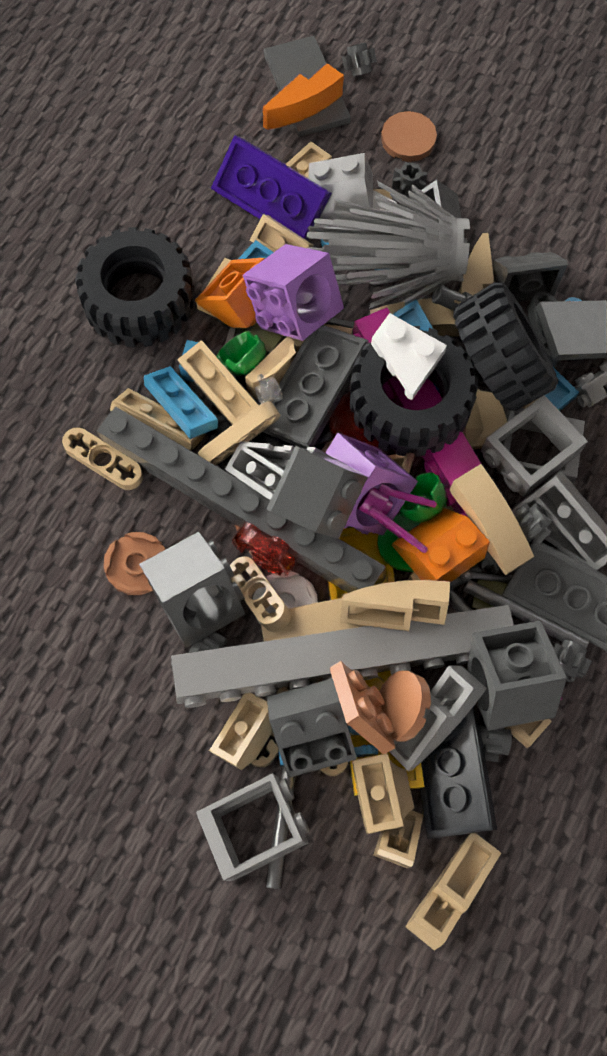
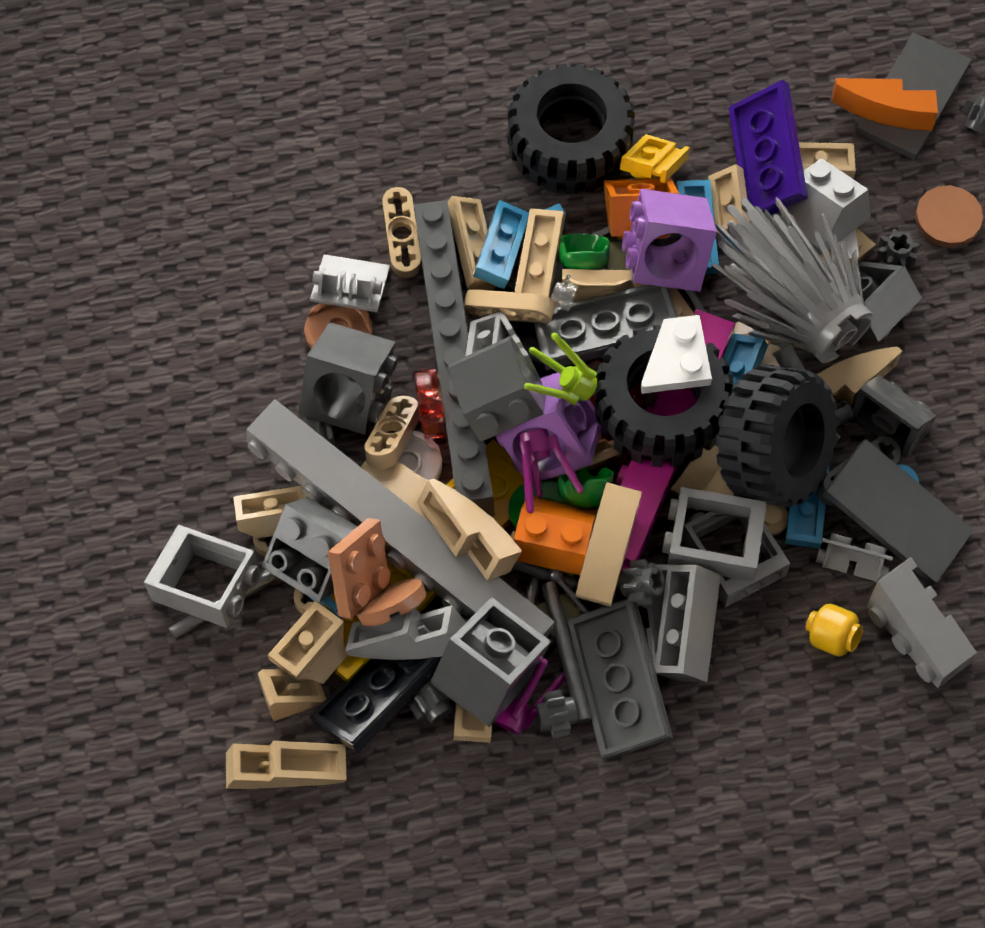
camera: 50 degrees right, 5 degrees down
(110, 525) = (349, 283): none -> light grey hinge
(209, 258) = (654, 157): none -> yellow plate
(359, 435) = (577, 381): none -> lime plant

